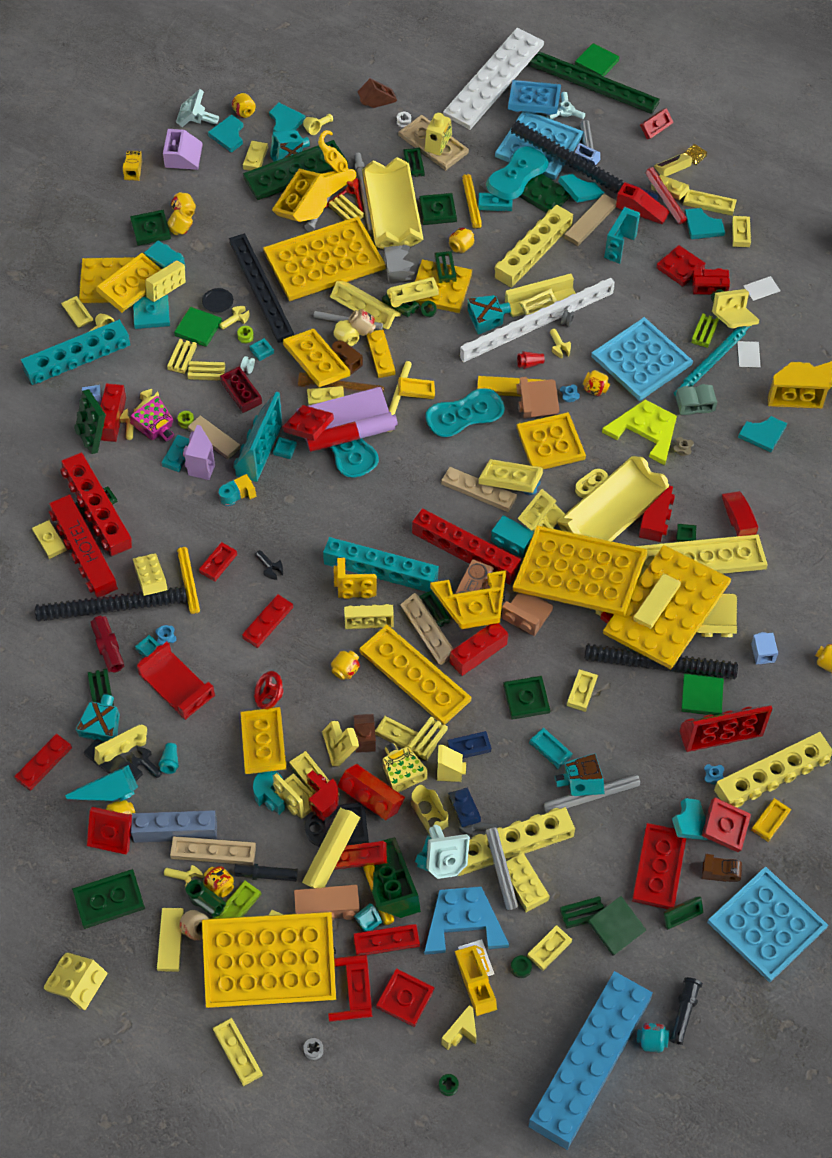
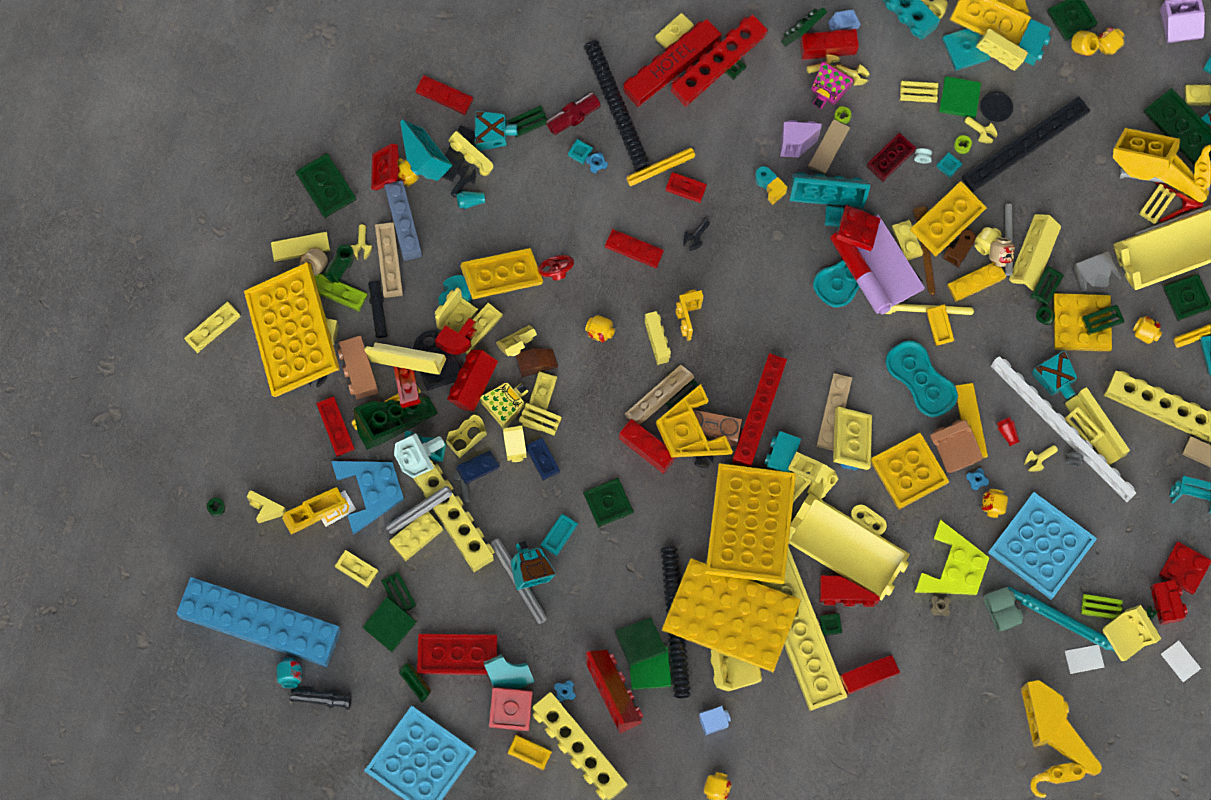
camera: 75 degrees right, 15 degrees up
(76, 979) = (247, 180): light yellow bracket -> none
(150, 574) = (653, 129): light yellow piece -> none
(174, 458) = (801, 115): teal plate -> none
(174, 681) = (550, 183): red panel -> none
(207, 369) = (904, 105): light yellow tile -> none
(218, 881) = (360, 271): yellow head -> none
(315, 1055) = (229, 393): light grey bush -> none
(323, 258) = (1083, 197): yellow plate -> none
(358, 988) = (285, 412): red plate -> none
(368, 918) = (348, 404): teal tile -> none
(382, 564) = (717, 336): teal brick -> none
(405, 997) = (285, 453): red plate -> none
(412, 291) = (1057, 293): light yellow plate -> none
(415, 674) = (606, 394): yellow plate -> none
(521, 966) = (335, 548): dark green tile -> none
(526, 612) = (697, 484): nougat bracket -> none
(582, 690) = (626, 552): light yellow plate -> none
(657, 601) = (729, 601): light yellow tile -> none
(676, 695) = (640, 641): none -> dark green tile
(721, 869) = (466, 710): reddish brown leg -> none
(763, 434) = (980, 689): teal tile -> none

